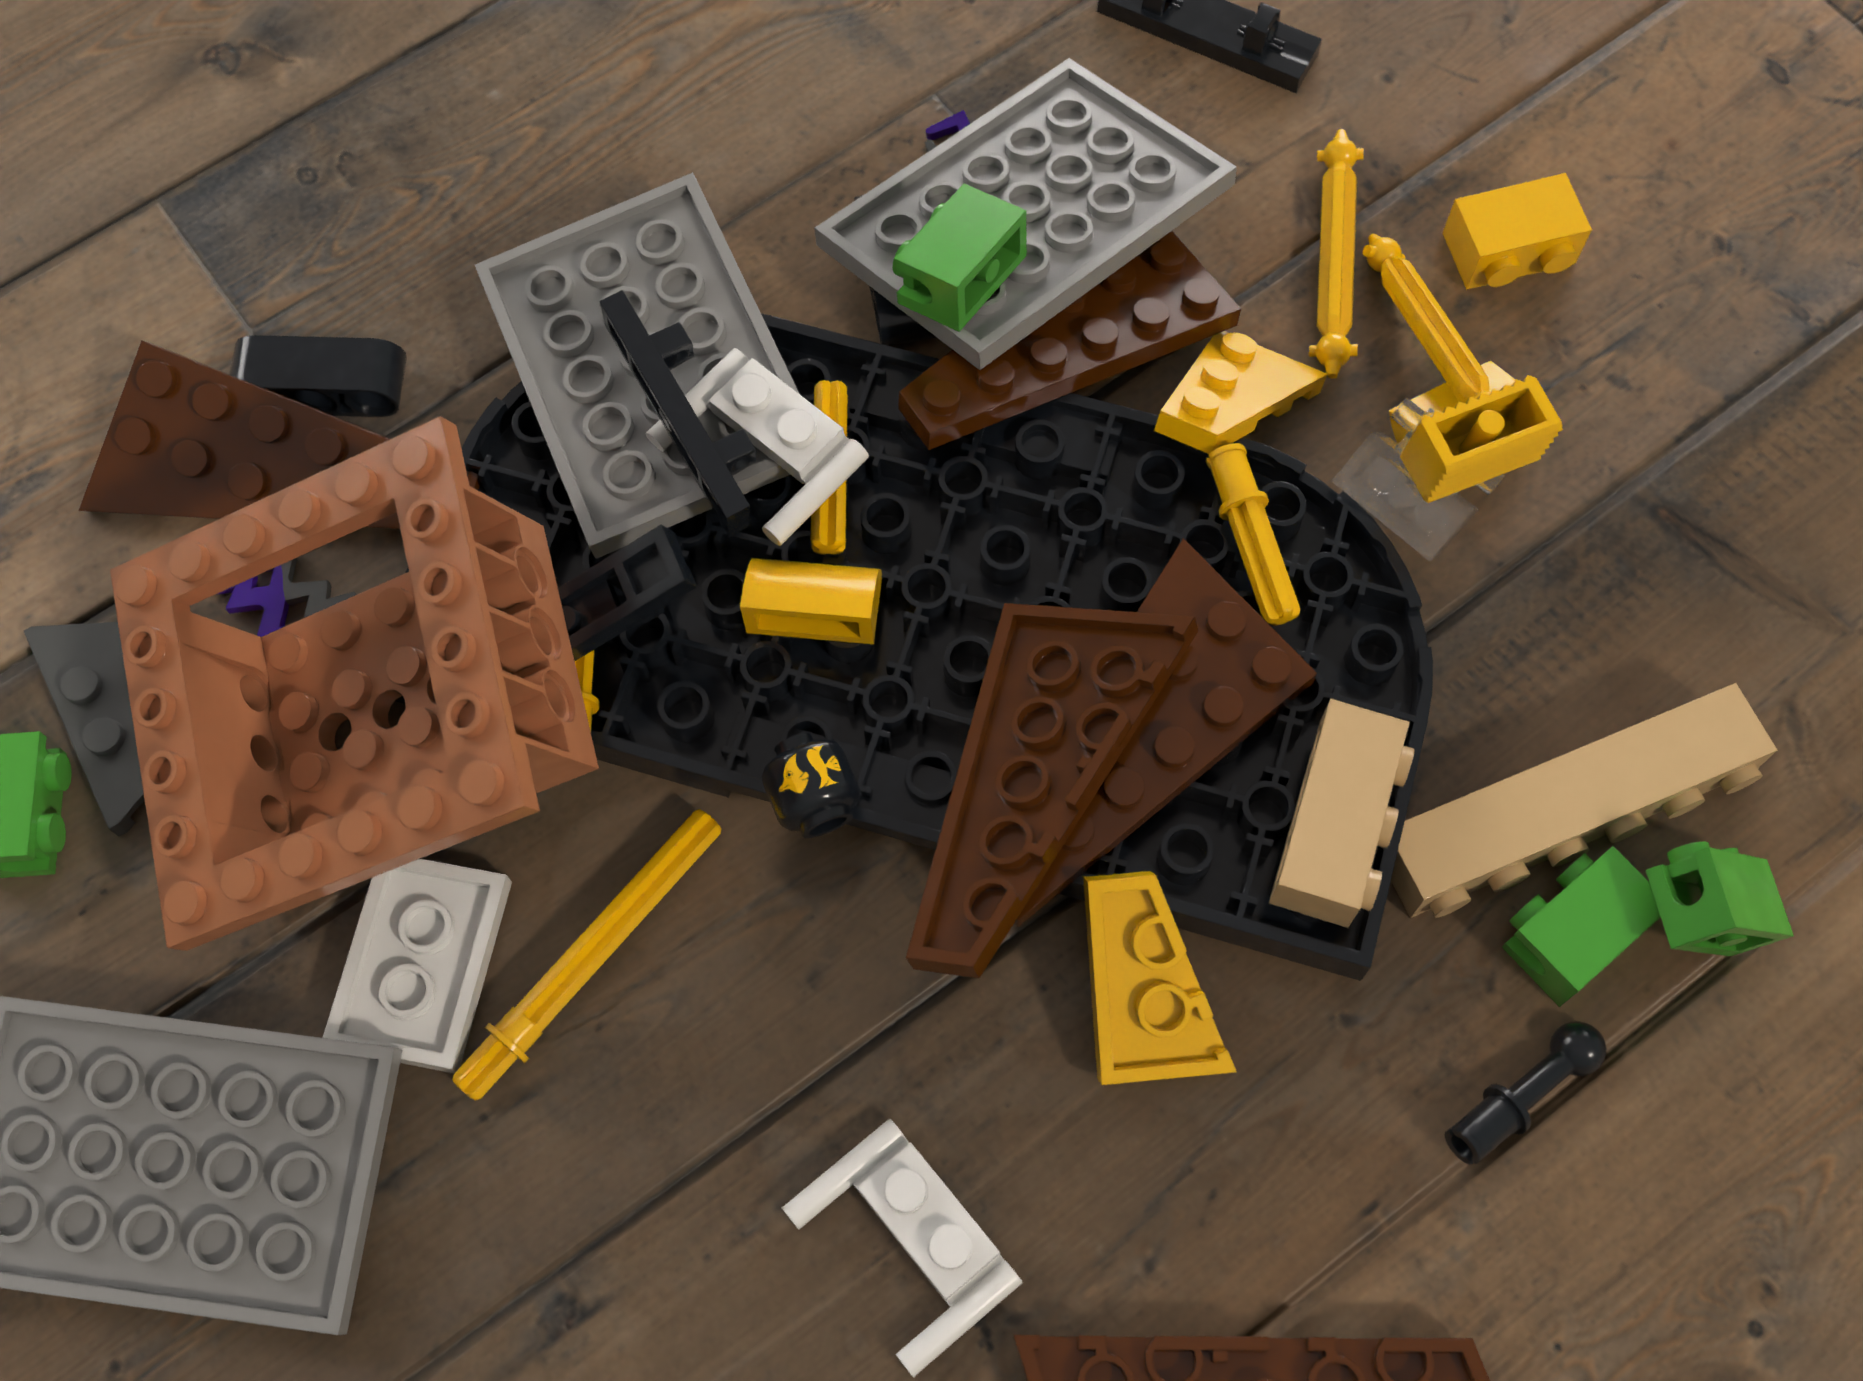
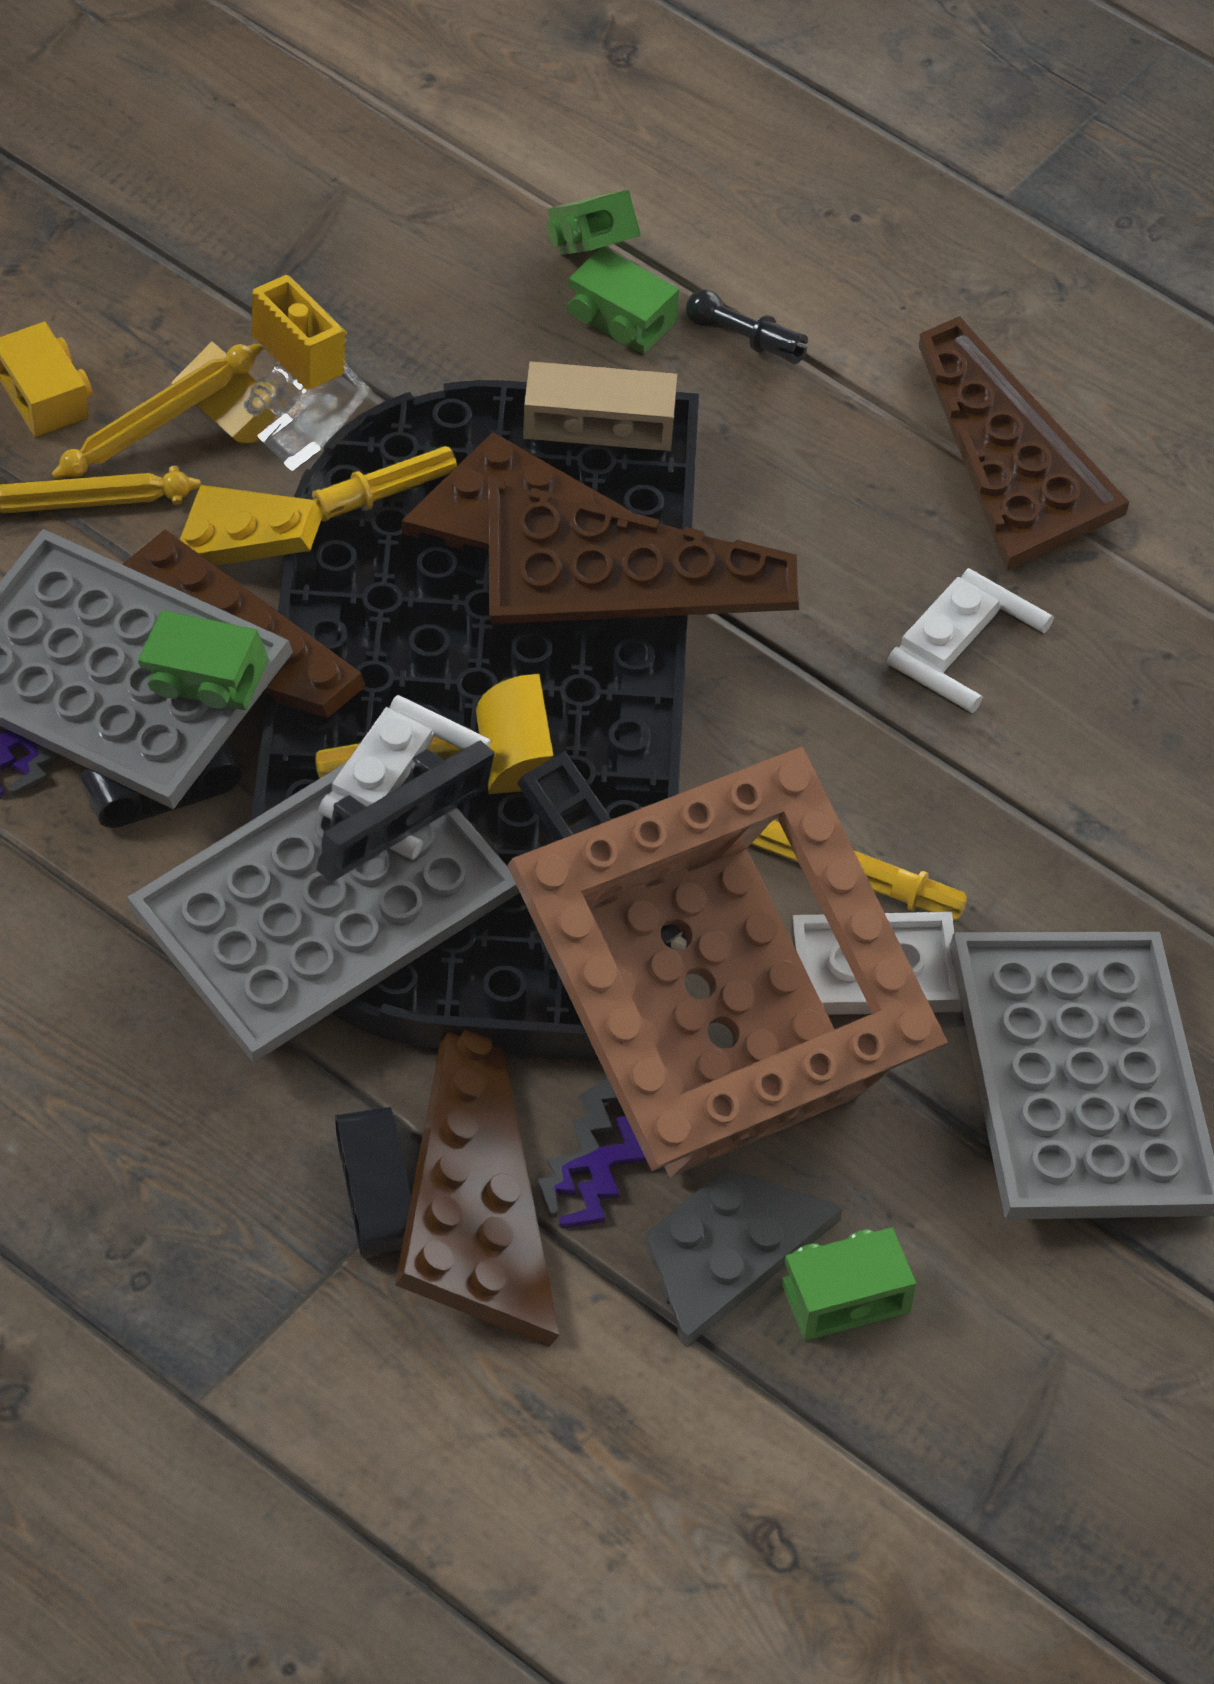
camera: 110 degrees left, 15 degrees down
(810, 785) = (678, 699): black head -> none
(1143, 990) = (755, 514): yellow wing -> none
(1577, 799) = (515, 293): tan brick -> none

